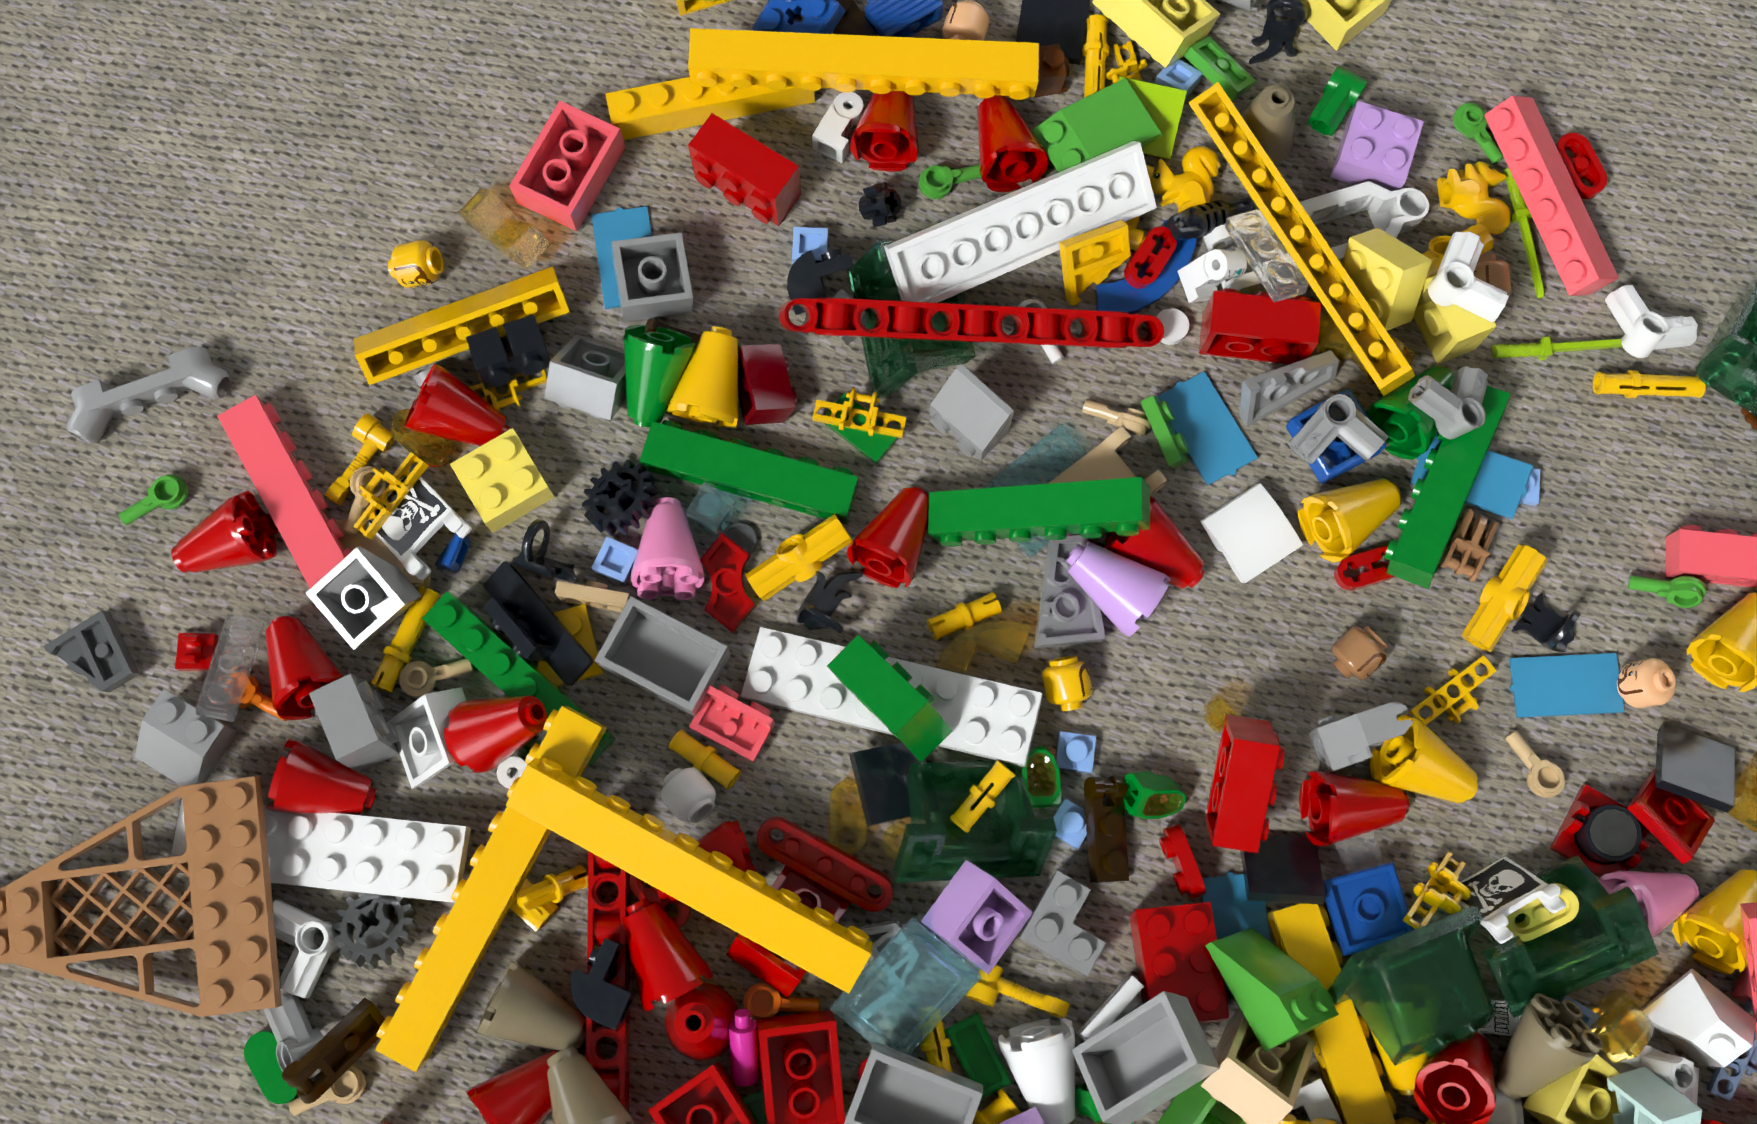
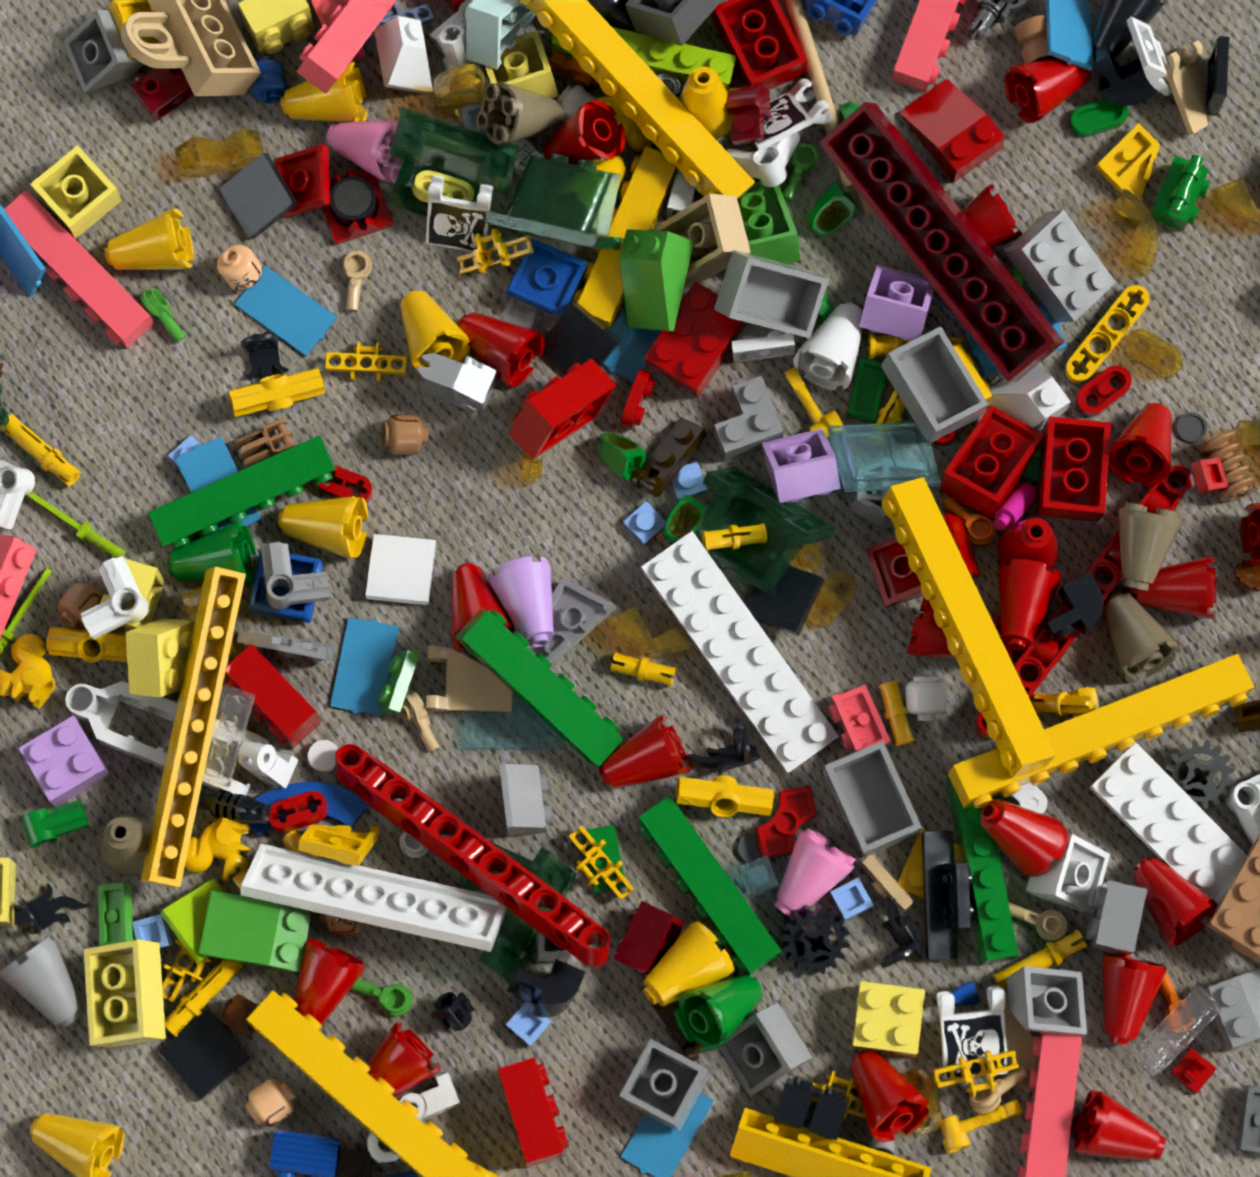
camera: 140 degrees left, 0 degrees up
(825, 864) = (871, 579): red plate -> none
(890, 696) = (745, 642): green wedge -> none
(1067, 682) = (613, 569): yellow head -> none
(1454, 410) = (199, 524): light grey piece -> none

